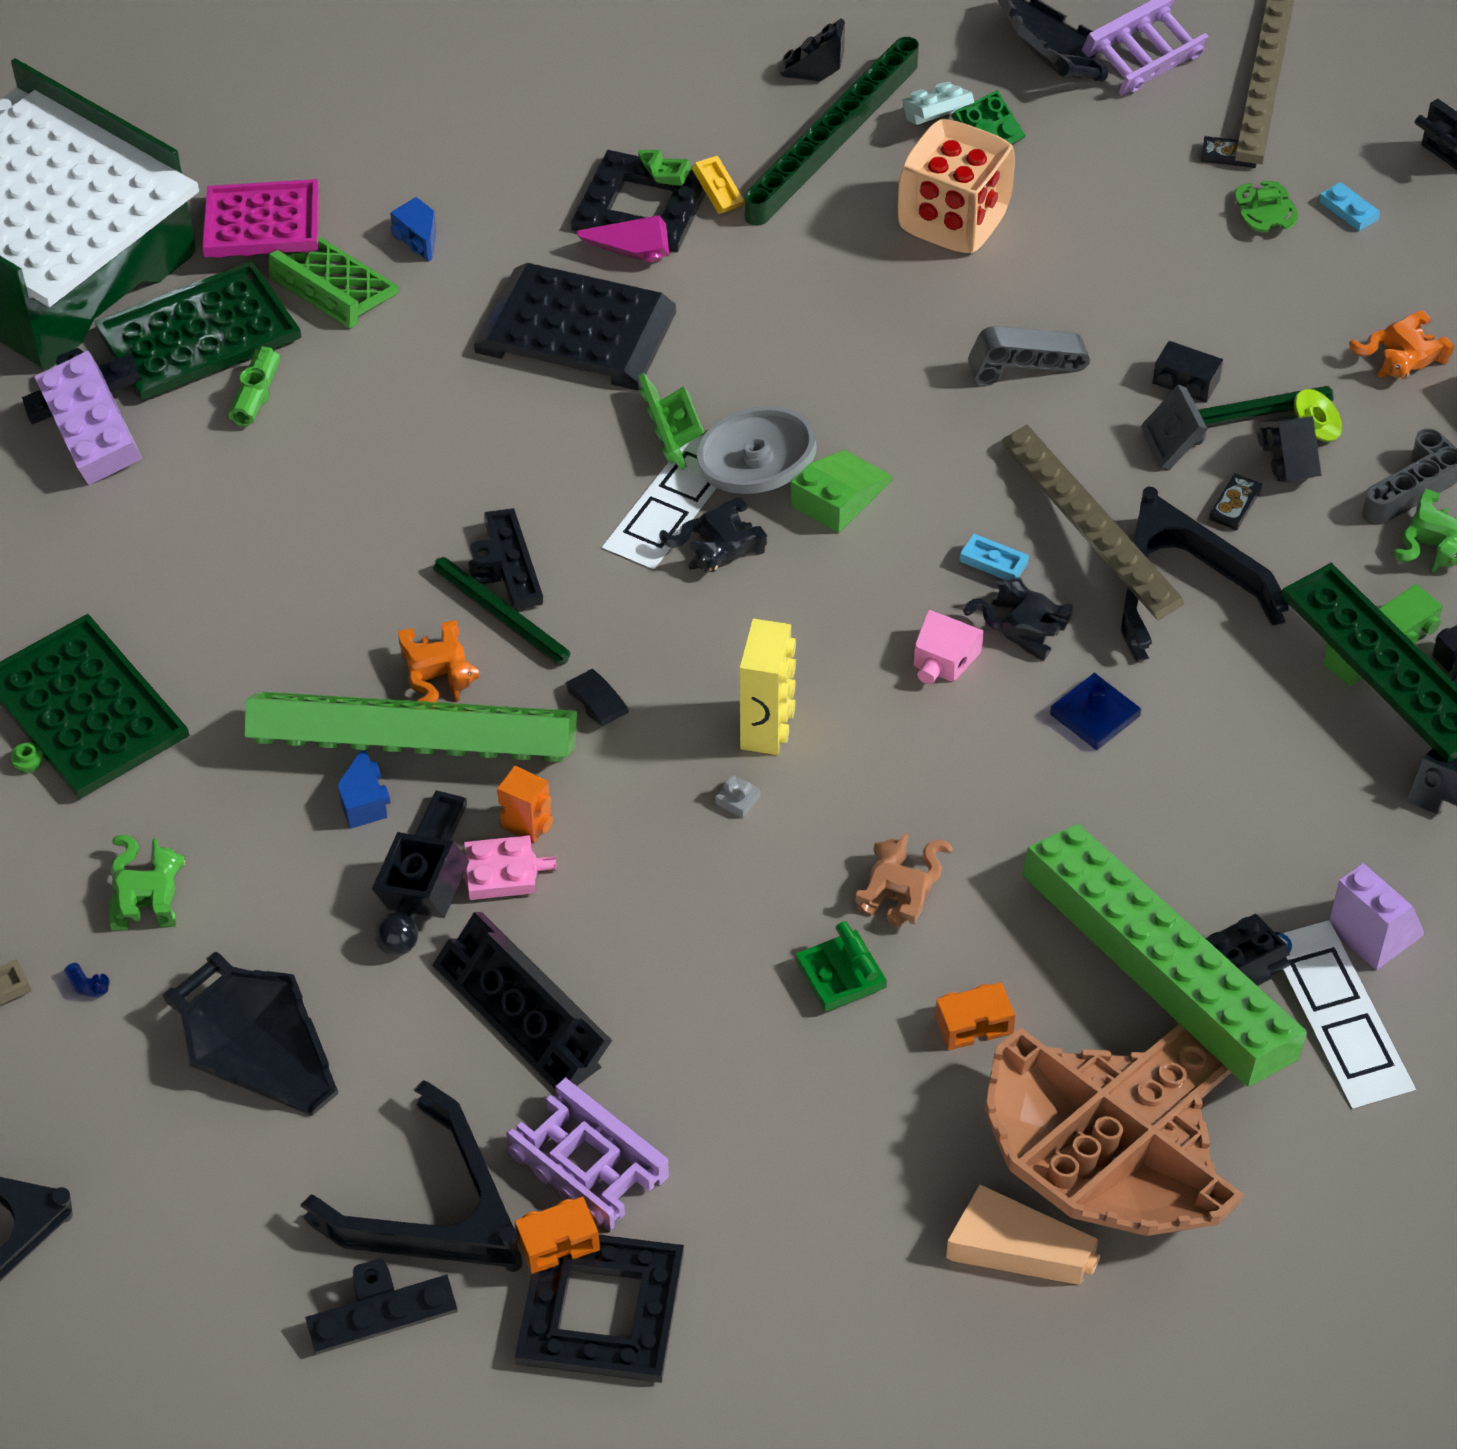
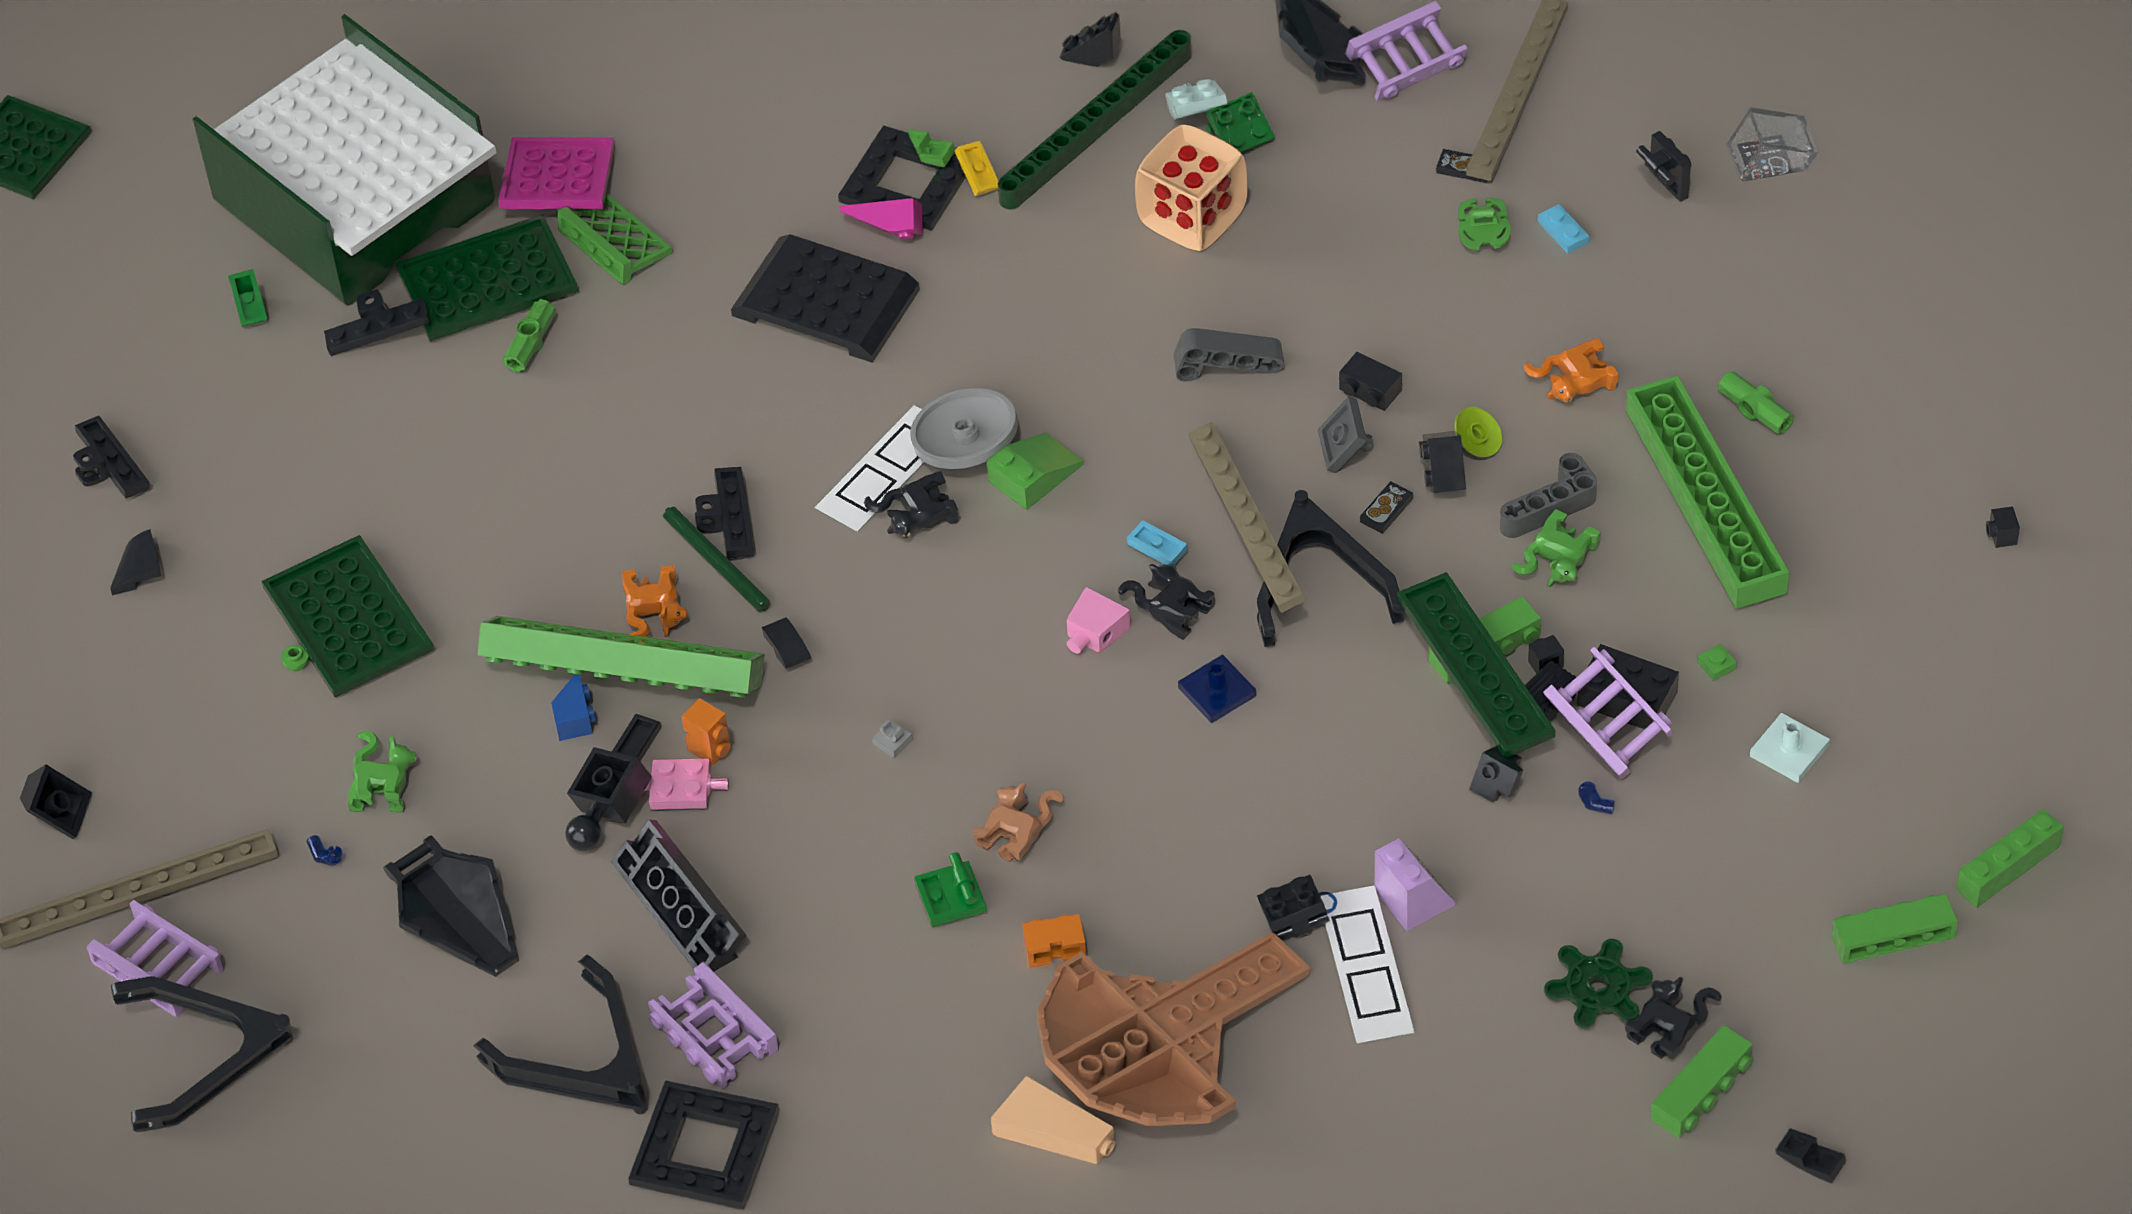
camera: 10 degrees right, 0 degrees up
(88, 417) = (378, 356): lavender brick -> none
(379, 1308) = (527, 1132): black plate -> none
(415, 226) = (695, 190): blue slope -> none
(556, 1233) = (675, 1085): orange brick -> none
(674, 417) = (896, 393): bright green bracket -> none
(767, 687) = (925, 646): light yellow brick -> none
(1164, 955) = (1219, 901): bright green brick -> none
(1255, 407) = (1419, 420): dark green axle -> none

